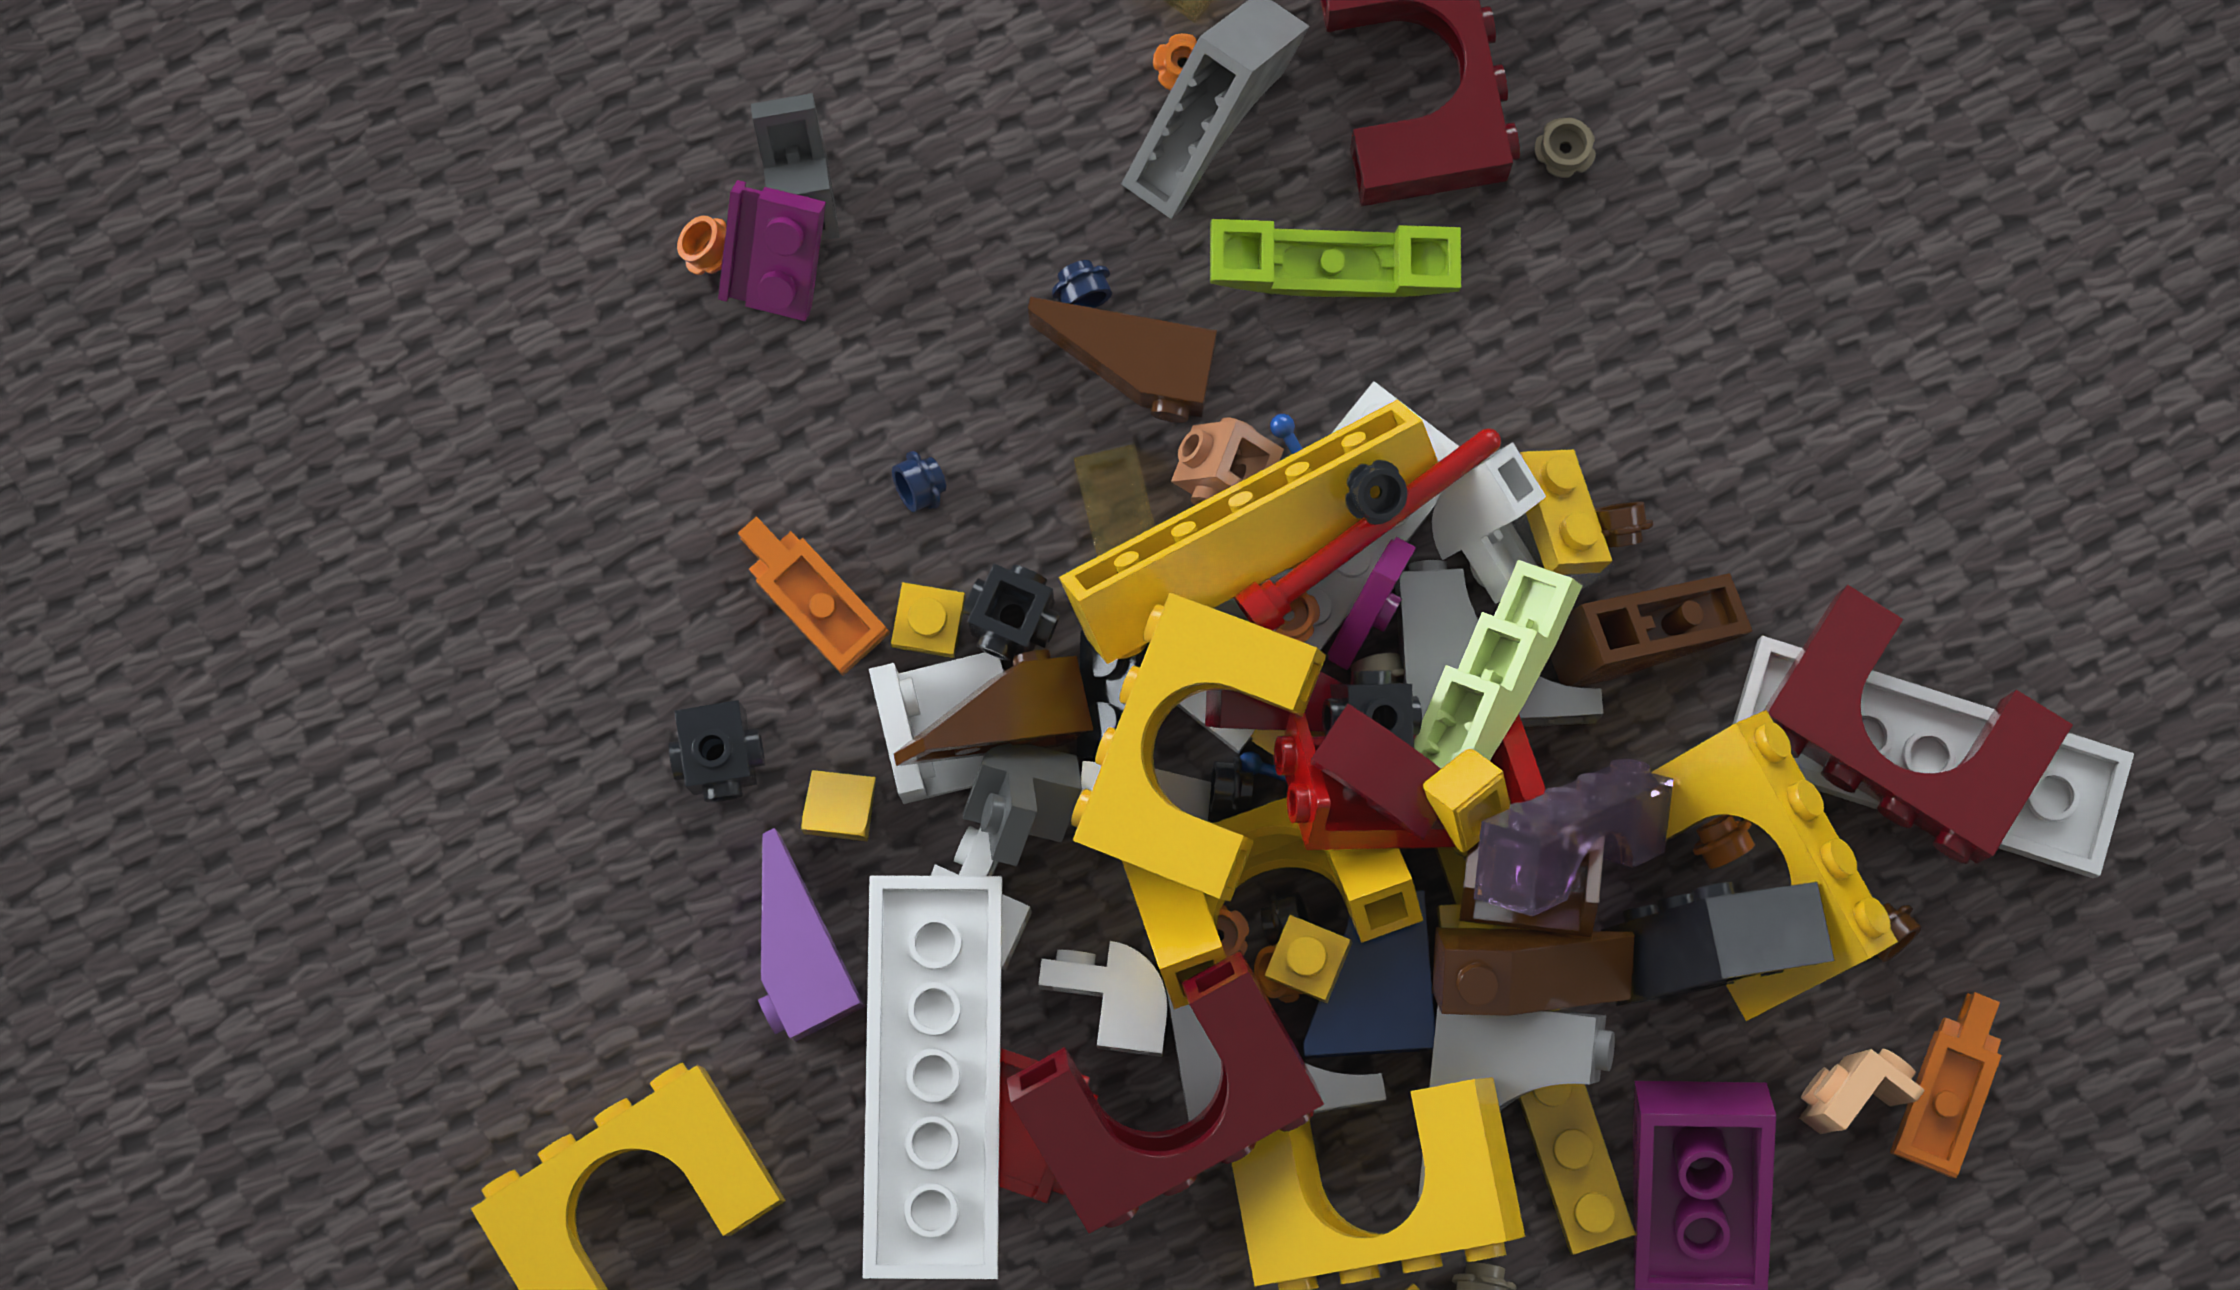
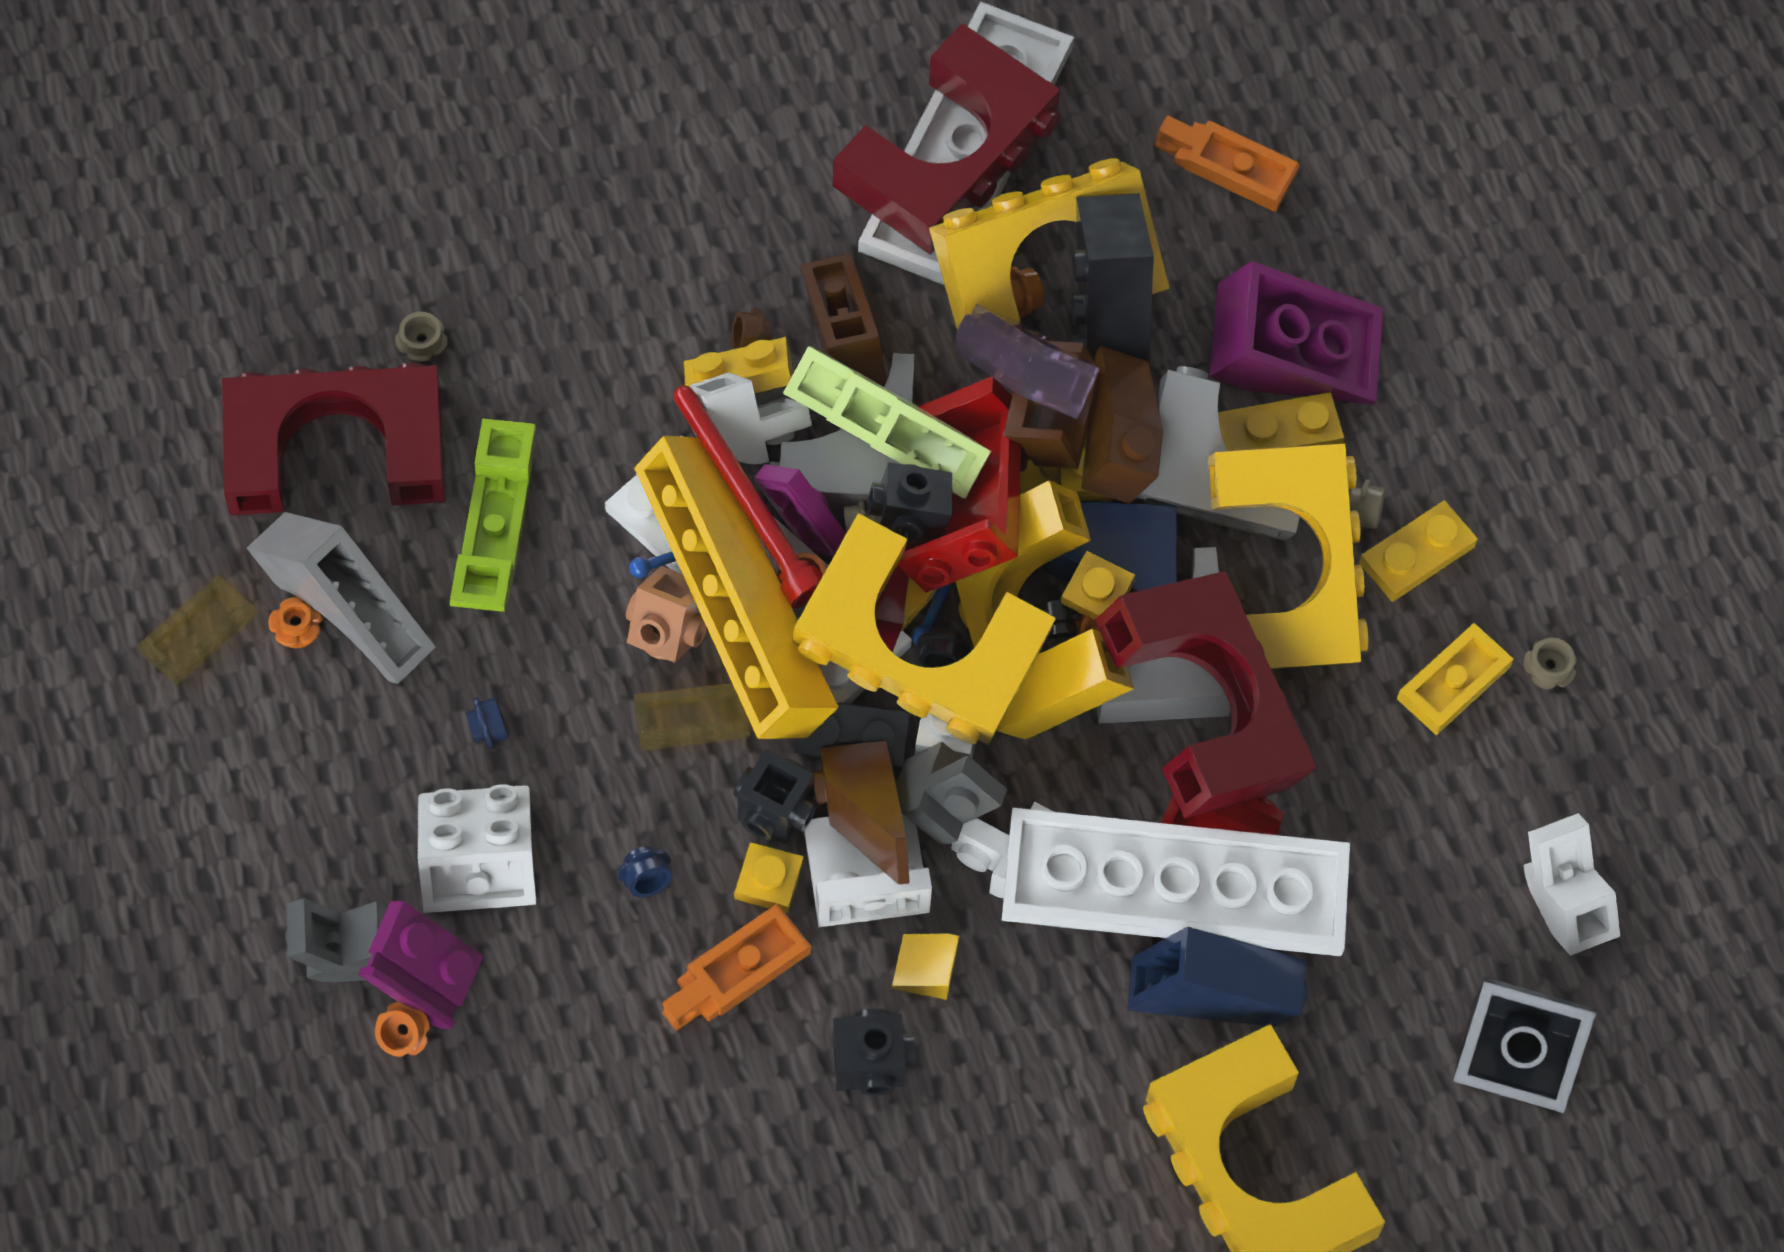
camera: 90 degrees left, 15 degrees down
(798, 957) = (1056, 1002): medium lavender slope -> none
(831, 1140) = (1217, 980): none -> dark blue slope
(931, 292) = (475, 848): none -> white bracket
(1131, 992) = (1115, 740): white brick -> none
(1142, 357) = (560, 680): reddish brown slope -> none
(1379, 769) = (960, 484): dark red slope -> none
(1391, 497) = (721, 474): black plate -> none
(1465, 795) = (988, 425): yellow slope -> none
(1841, 1093) = (1230, 216): light nougat bracket -> none

